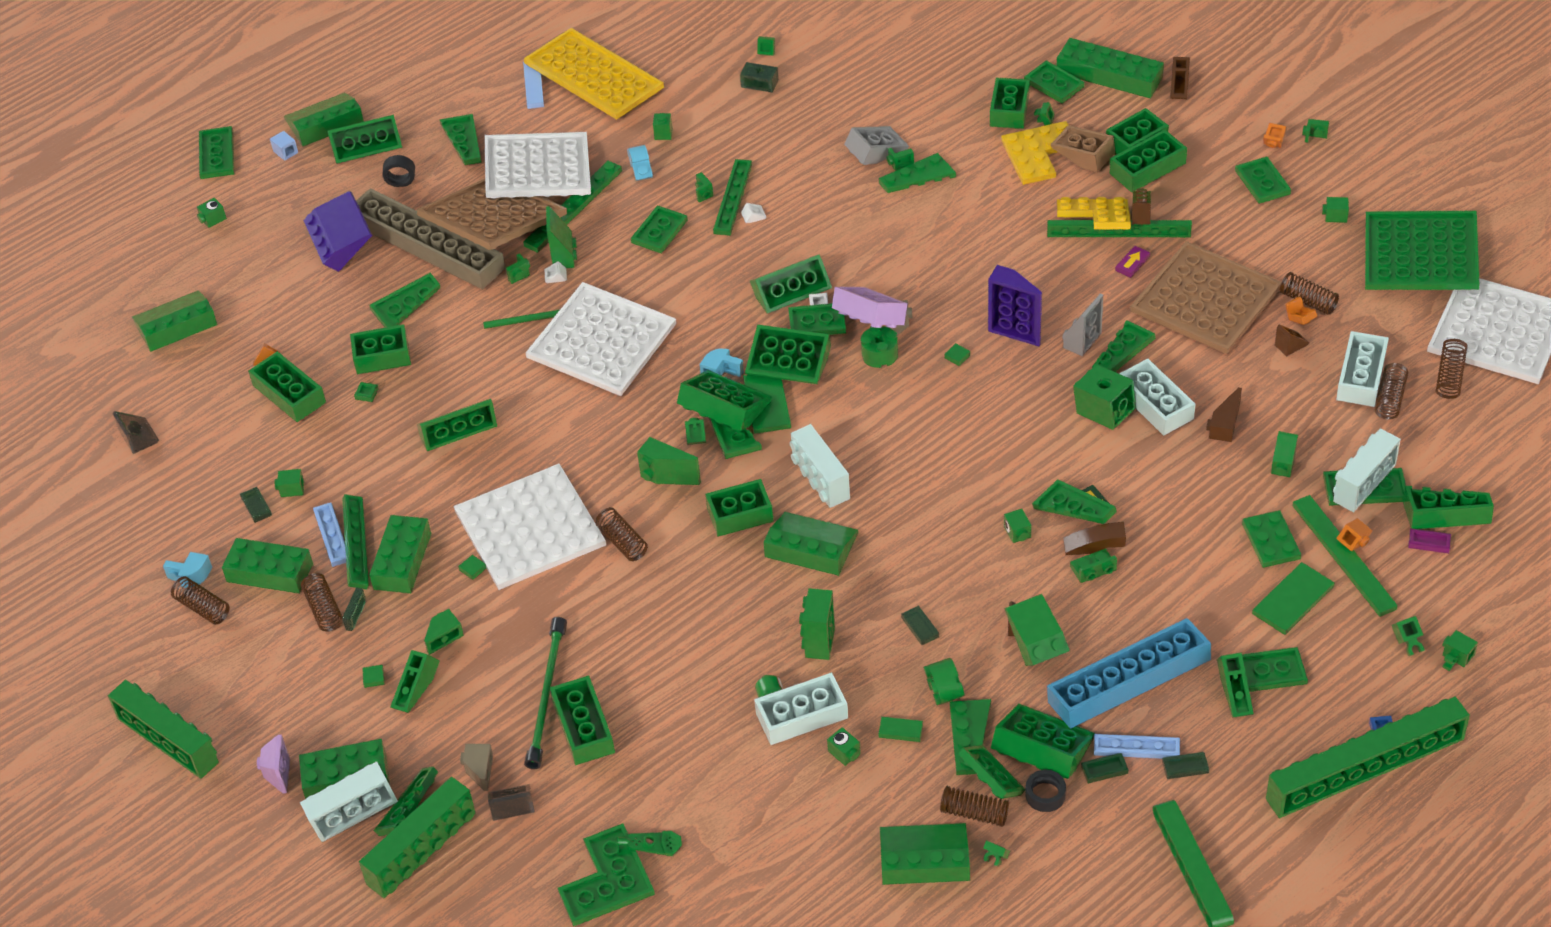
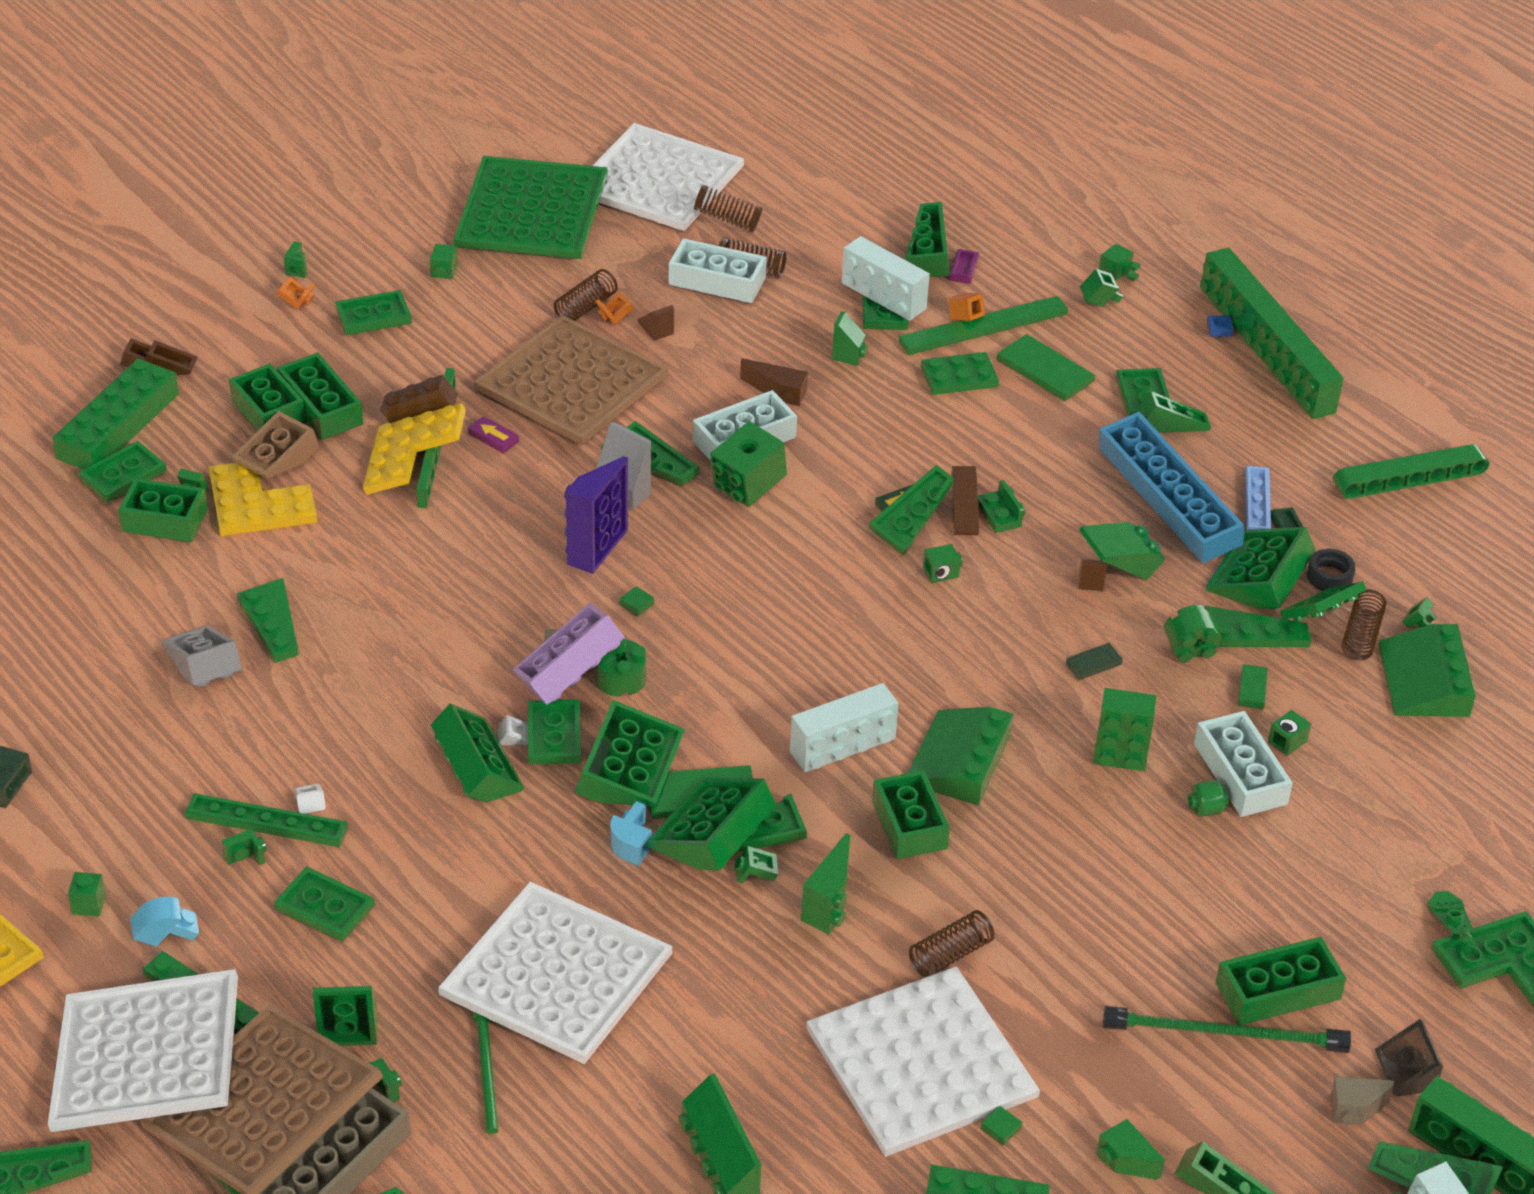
camera: 95 degrees left, 5 degrees down
(555, 273) = (392, 1038): white slope -> none
(900, 159) = (241, 630): green bracket -> none
(1185, 765) = (1279, 467): clear green tile -> none

